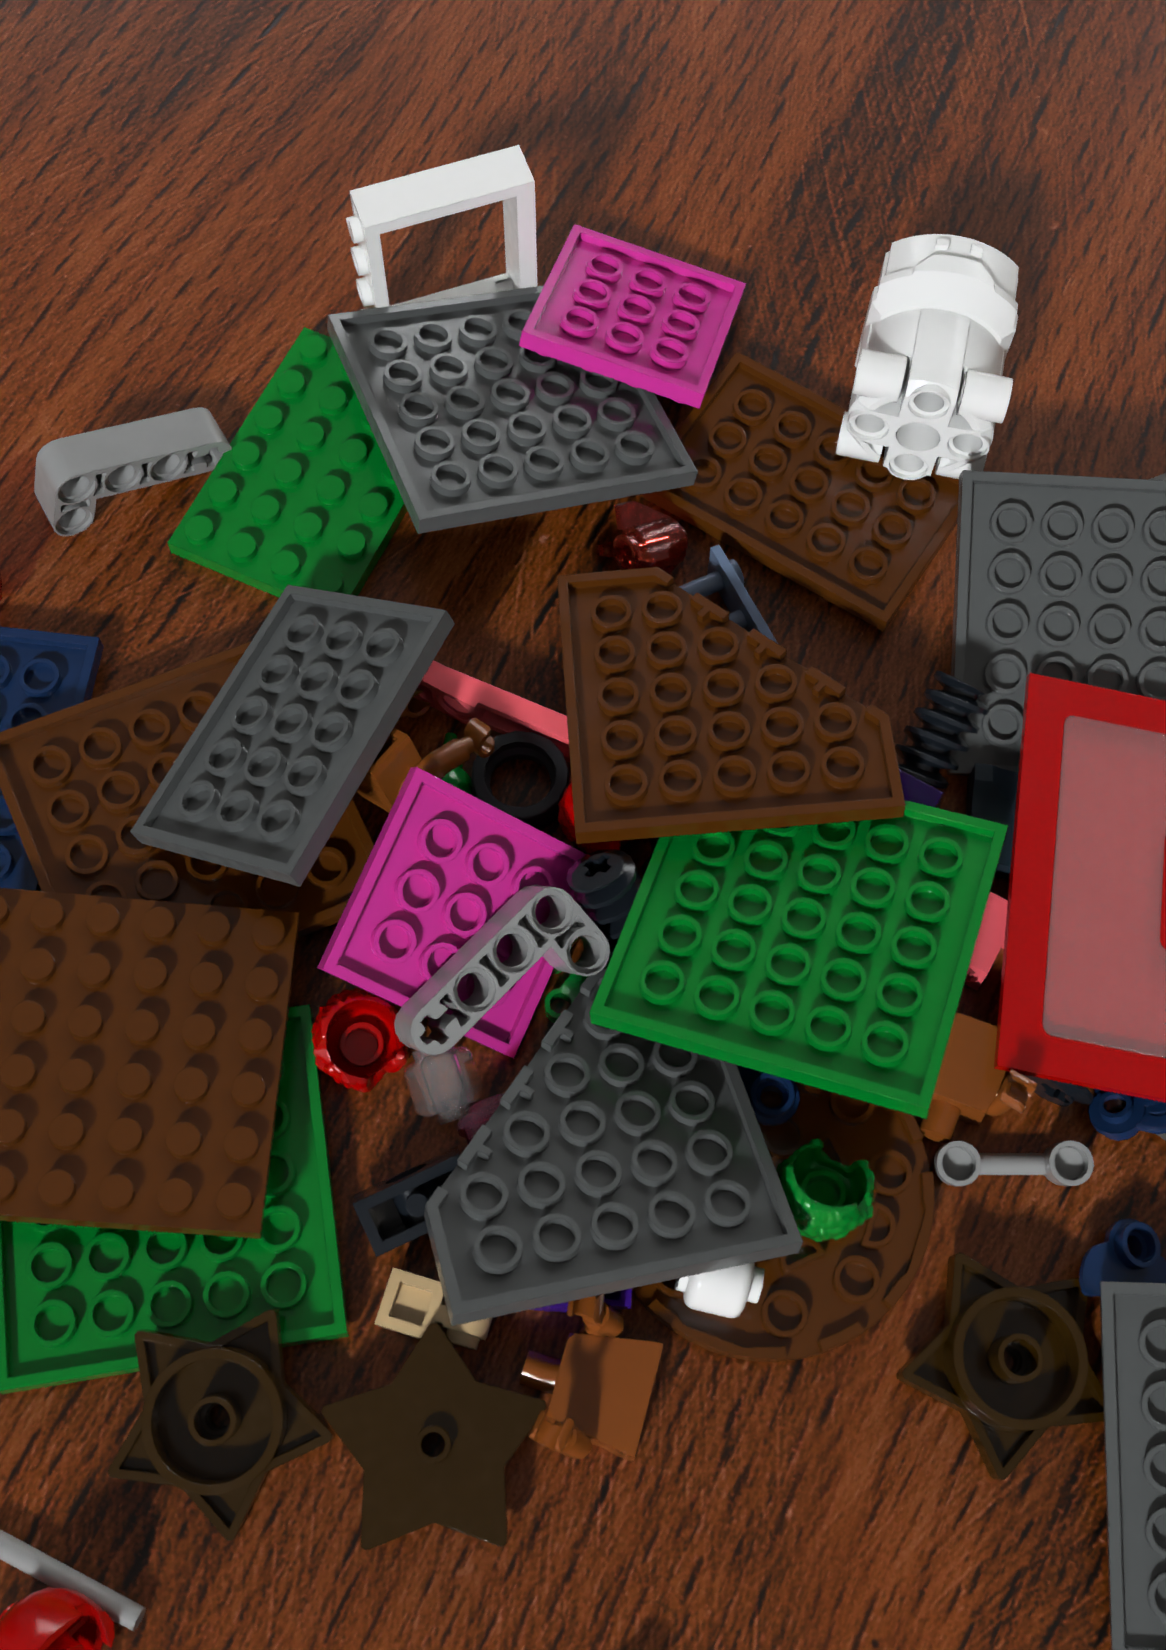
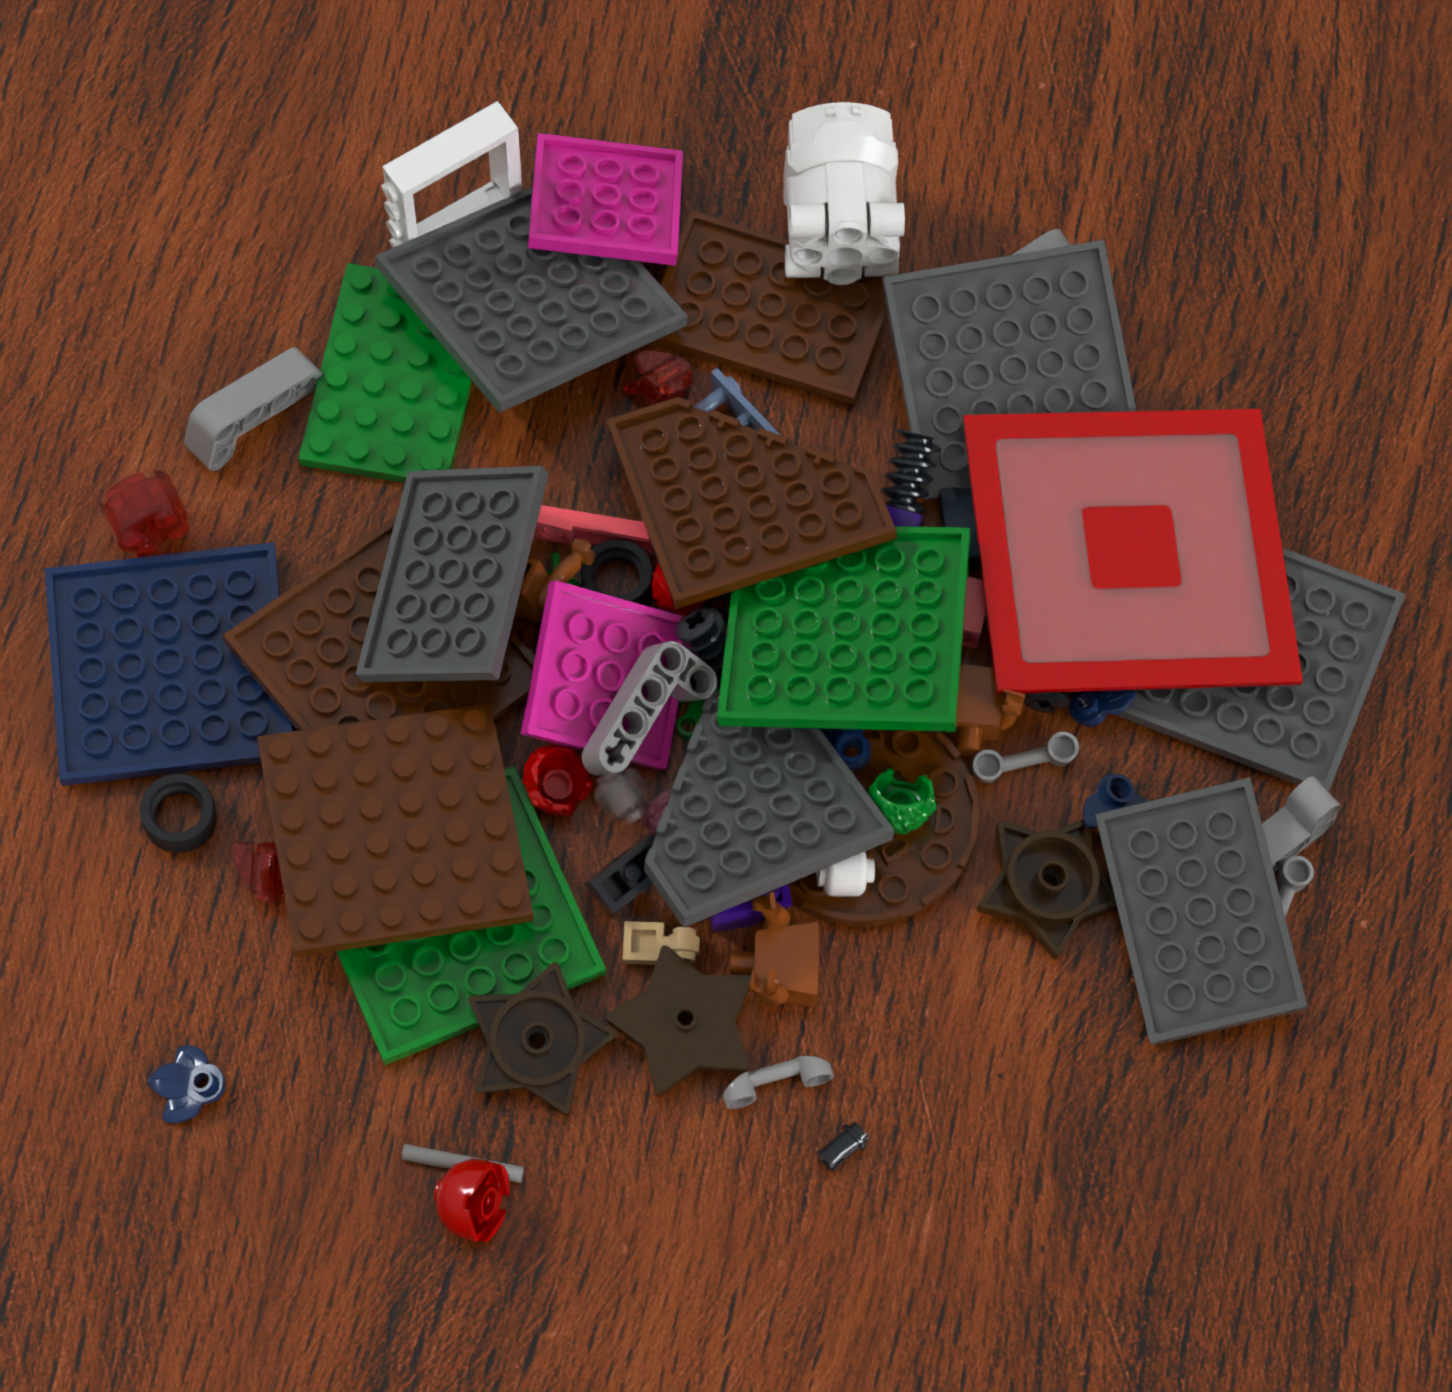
camera: 15 degrees left, 0 degrees up
(596, 1565) = (812, 1070): none -> light grey bar

